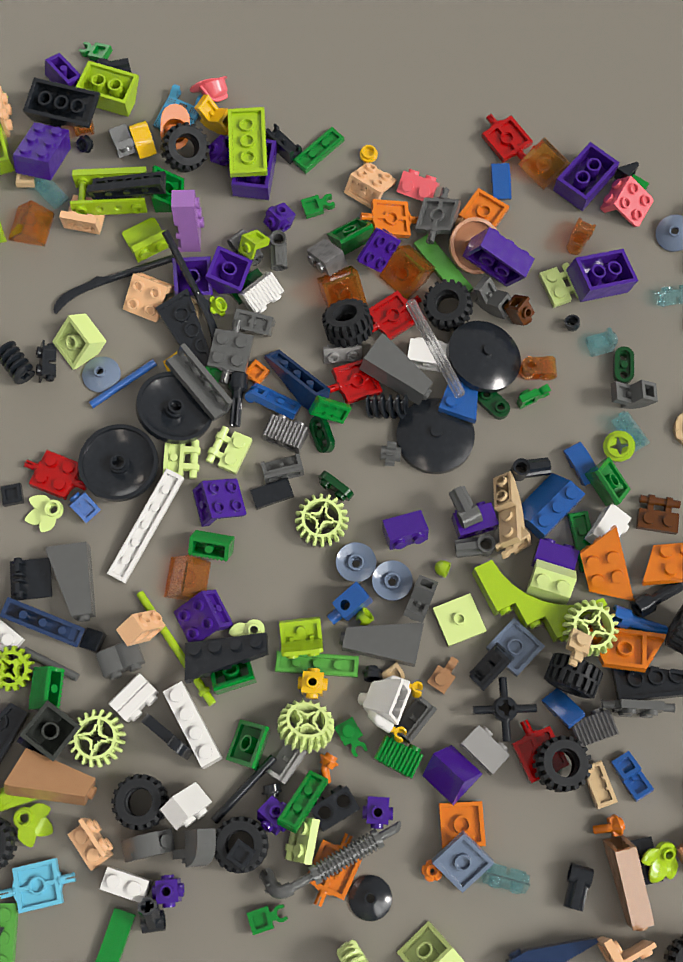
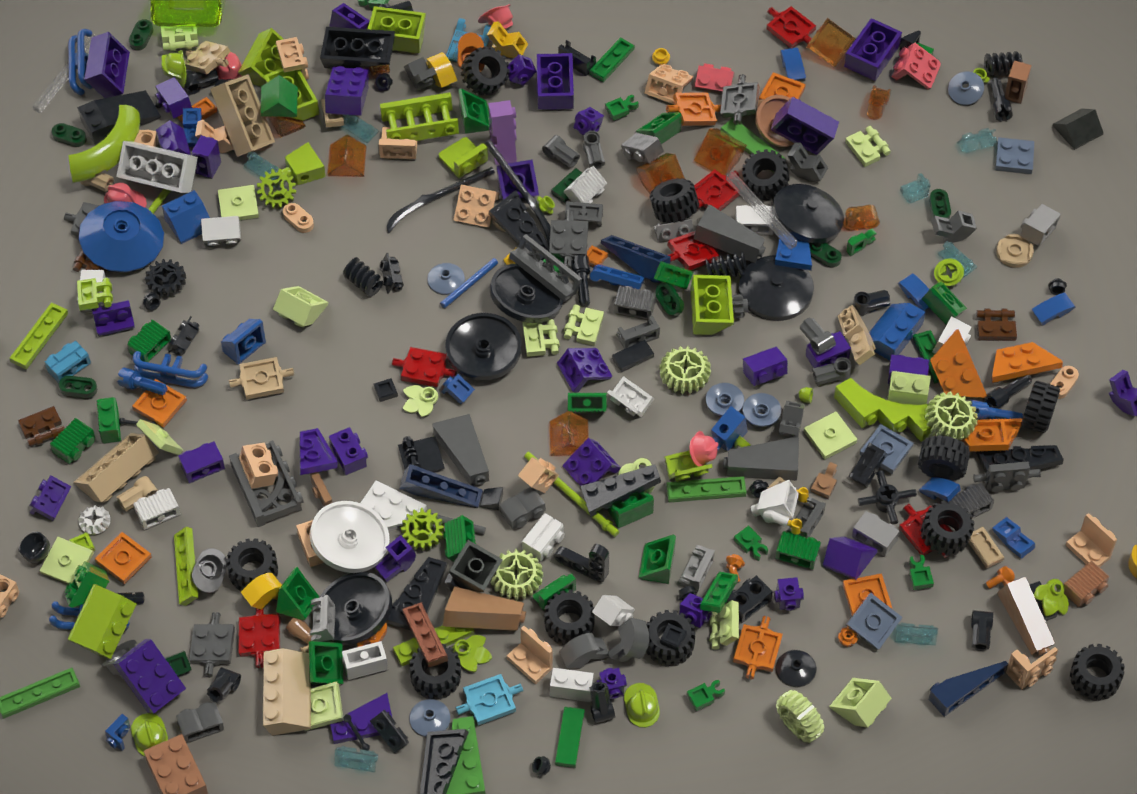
camera: 10 degrees left, 15 degrees down
(78, 340) = (419, 250): yellowish green slope -> none
(128, 186) = (440, 109): black fence -> none
(132, 764) = (563, 583): none -> green bracket
(145, 525) = (520, 396): white tile -> none
(192, 725) = (588, 533): white brick -> none
(198, 915) = (642, 705): none -> lime piece
(228, 271) = (550, 172): dark purple slope -> none
(243, 789) = (664, 593): black bar -> none
(247, 142) = (546, 57): lime plate -> none
(251, 242) = (567, 145): lime bracket -> none
(258, 544) = (631, 396): none -> white bracket
(306, 732) = (708, 533): yellowish green gear -> none
(312, 692) = (706, 502): yellow brick -> none
(318, 623) = (702, 449): none -> coral piece
(331, 864) = (755, 637): dark grey piece -> none
(341, 491) = (692, 339): dark green plate -> none
(363, 448) = (711, 304): none -> lime slope
(378, 249) = (691, 134): dark purple bracket -> none
(516, 548) = (870, 366): tan plate -> none
(522, 313) = (833, 170): reddish brown brick -> none
(523, 808) = (920, 575): none -> green plate
(574, 320) = (885, 176): black hinge -> none
(579, 645) = (942, 424): tan plate -> none
(601, 275) = (904, 130): dark purple brick -> none

